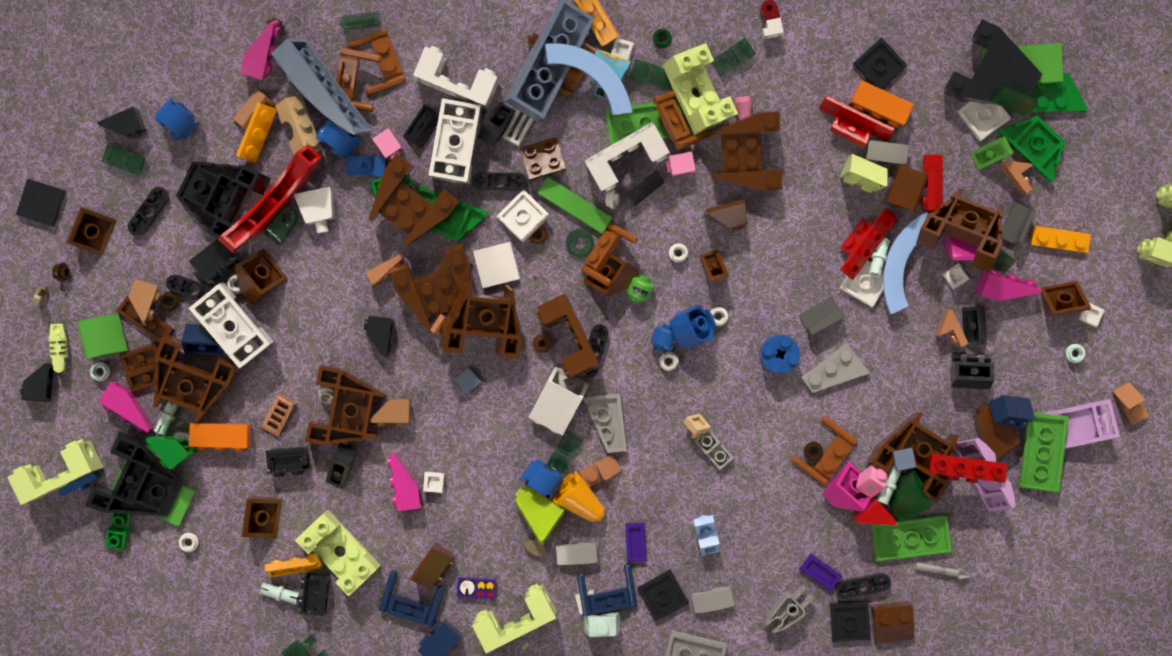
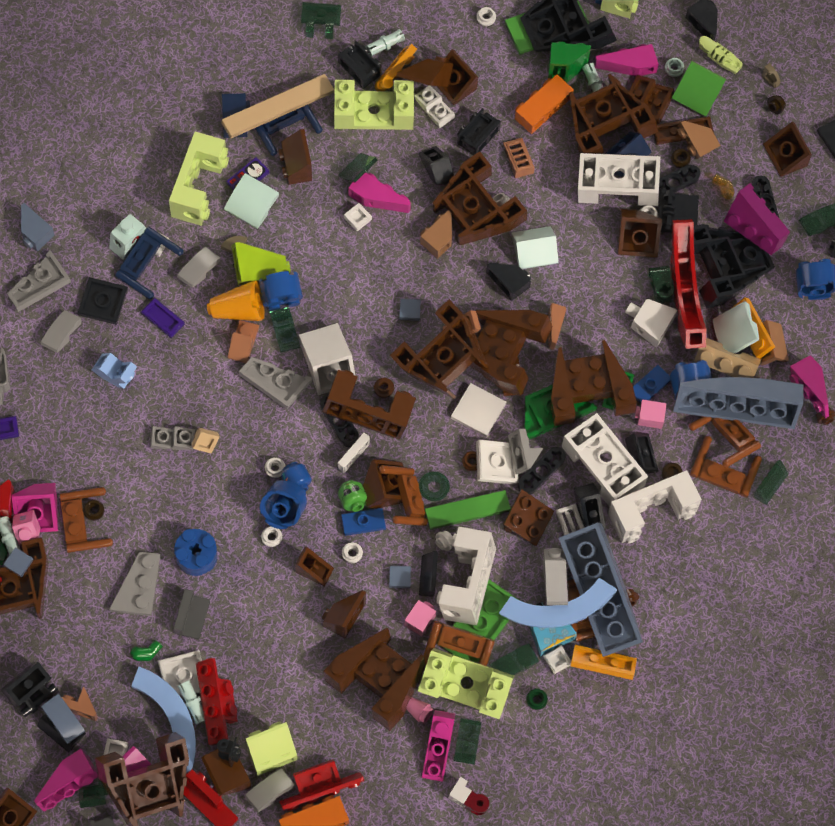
camera: 130 degrees right, 20 degrees down
(161, 249) = (726, 186): none -> clear yellow arm
(171, 200) = (755, 221): none -> magenta wedge
(269, 141) = (736, 328): none -> light aqua slope
(277, 535) = (429, 72): none -> reddish brown slope
(296, 511) = (434, 106): none -> white slope
(337, 339) = (535, 247): none -> light aqua slope
(397, 516) = (358, 167): none -> clear green piece
(405, 618) = (277, 106): none -> tan tile
(417, 93) = (670, 470): none -> dark brown tile
(493, 567) = (251, 201): none -> light aqua slope
(503, 202) = (522, 454): none -> light grey slope
(572, 97) = (555, 576): none -> light grey slope
(609, 317) = (353, 453): none -> white tile
(649, 266) = (363, 522): none -> blue plate
(664, 205) = (400, 577): none -> sand blue tile
(753, 72) = (438, 745): none -> dark pink slope
(879, 323) = (146, 654): none -> green arm
(901, 191) = (229, 750): none -> black hinge
(973, 327) = (63, 718): none -> sand blue slope

